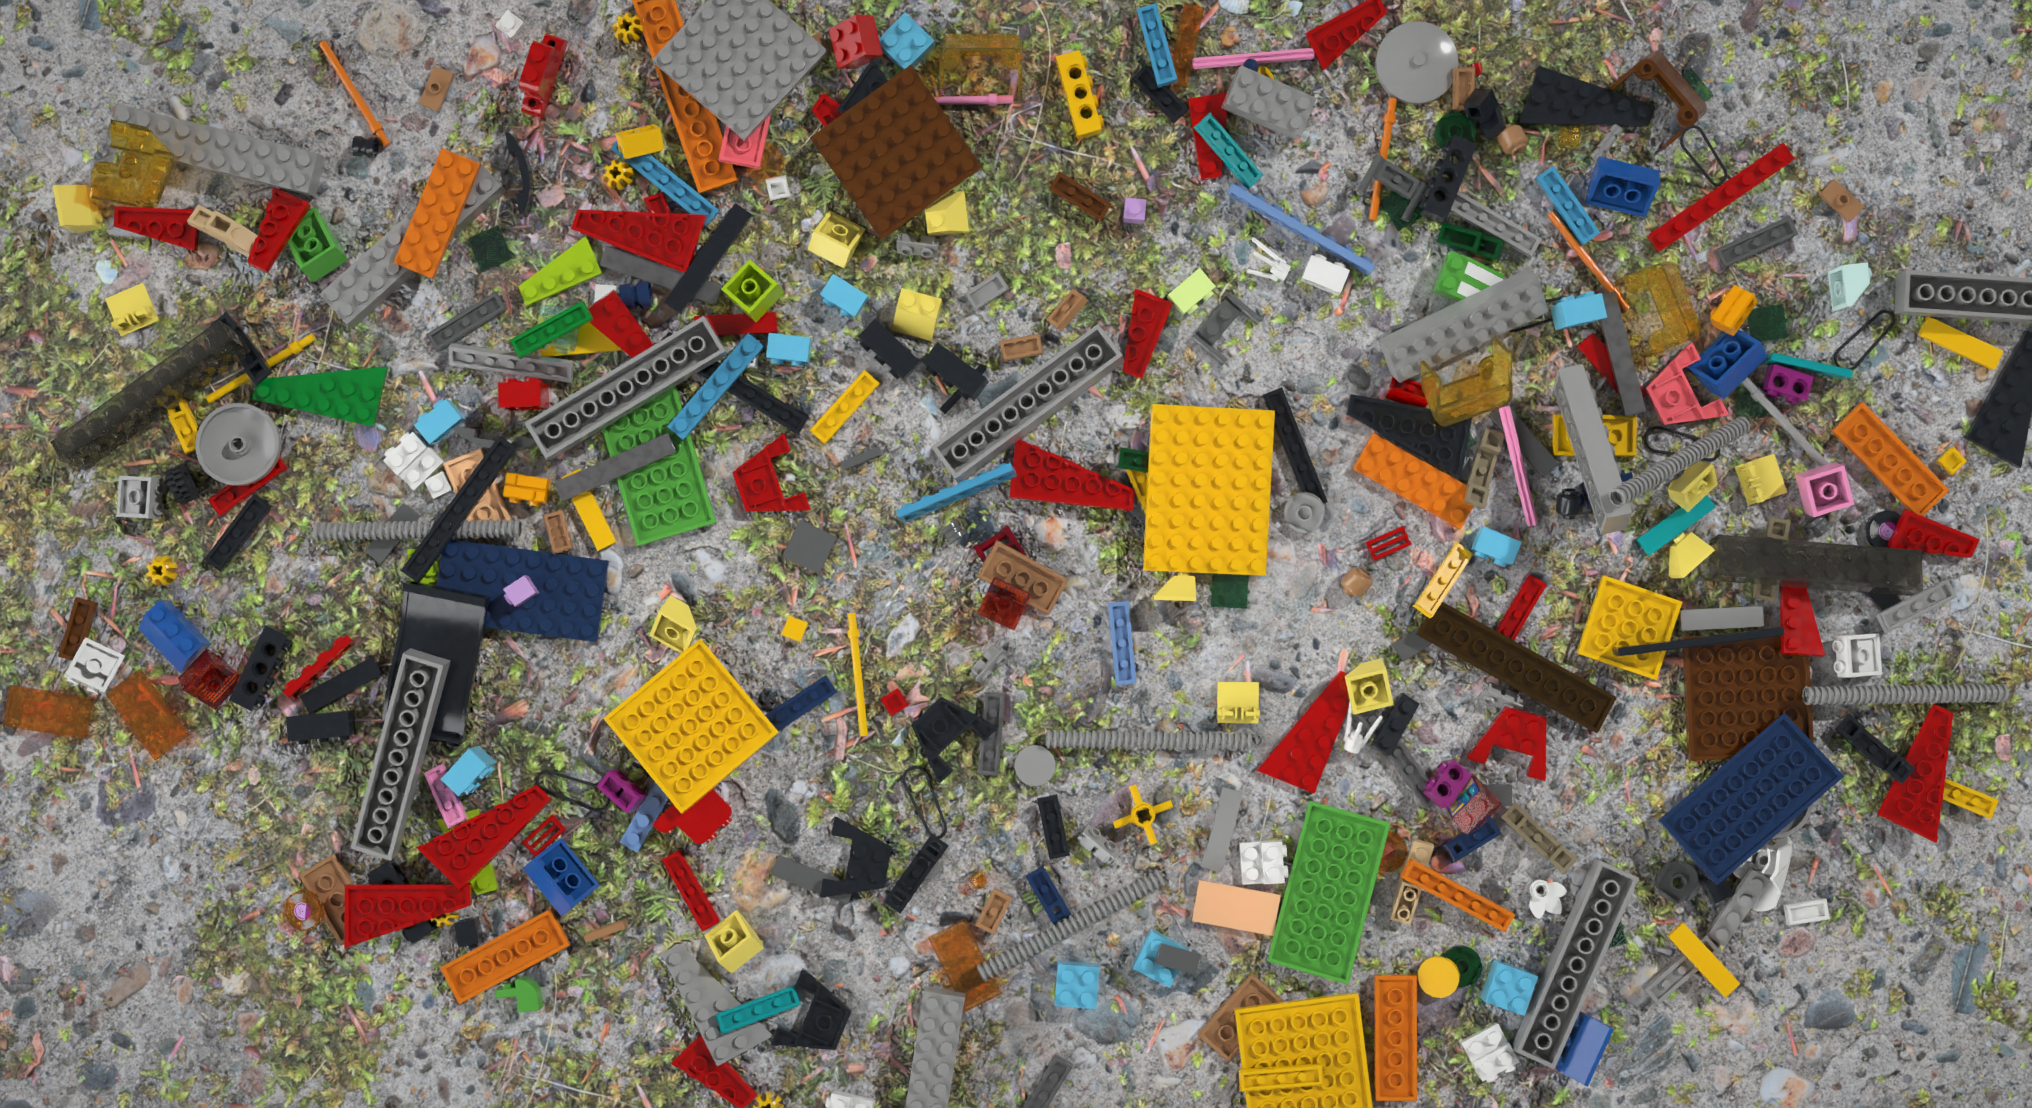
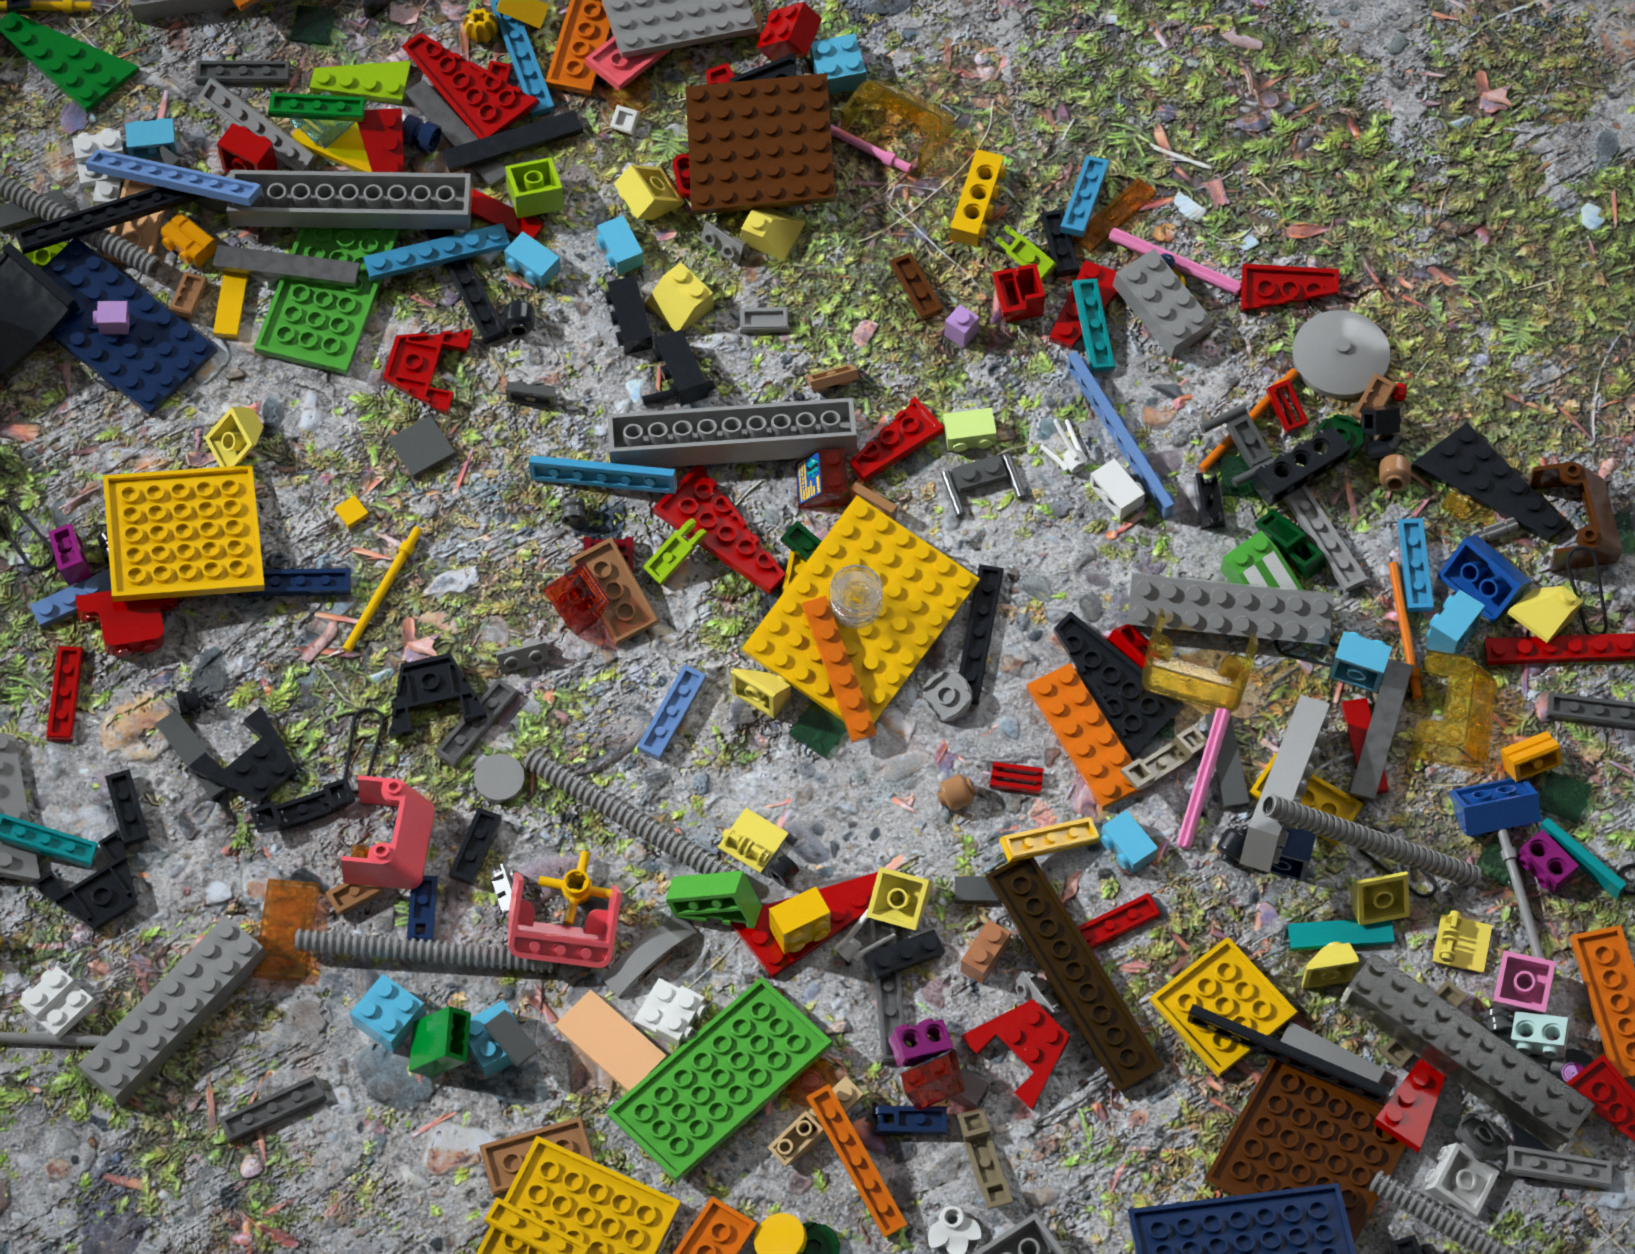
camera: 30 degrees right, 25 degrees down
(486, 454) = (174, 177): none -> medium blue plate
(733, 942) = (70, 765): light yellow slope -> none
(782, 844) = (188, 701): none -> black wheel
(795, 948) = (127, 807): none -> black plate
(811, 402) = (519, 318): none -> black head
(844, 407) = (549, 344): yellow tile -> none
(851, 209) = (682, 177): none -> red plate
(894, 702) = (400, 637): red tile -> none
(1009, 852) = (403, 860): none -> coral windscreen
(1021, 347) = (762, 386): medium nougat plate -> none
(1046, 523) = (674, 552): none -> lime hinge
(1111, 397) = (822, 479): none -> clear red slope
(1129, 988) = (440, 1042): none -> green brick
(1144, 120) = (1026, 253): none -> lime hinge
(1152, 394) = (874, 499): none -> medium nougat plate
(1160, 158) = (1019, 292): none -> red plate
(1163, 861) = (562, 943): none -> coral windscreen
(1219, 489) = (857, 583): none -> clear wheel
(1222, 544) = (838, 669): none -> orange plate
(1243, 767) = (714, 896): none -> bright green wedge
(1274, 713) = (783, 870): none -> black wheel
(1318, 753) = (800, 920): none -> yellow brick
(1391, 122) = (1278, 409): none -> red tile
(1394, 244) = (1208, 502): none -> black hinge
(1448, 688) = (985, 952): none -> nougat brick
(1627, 242) = (1455, 624): none -> medium azure brick
(1673, 395) = (1415, 808): coral wing -> none
(1681, 188) = (1546, 610): none -> light yellow slope
(1852, 514) = (1540, 1028): none -> light aqua brick
(1863, 625) = (1481, 1138): none -> dark grey plate

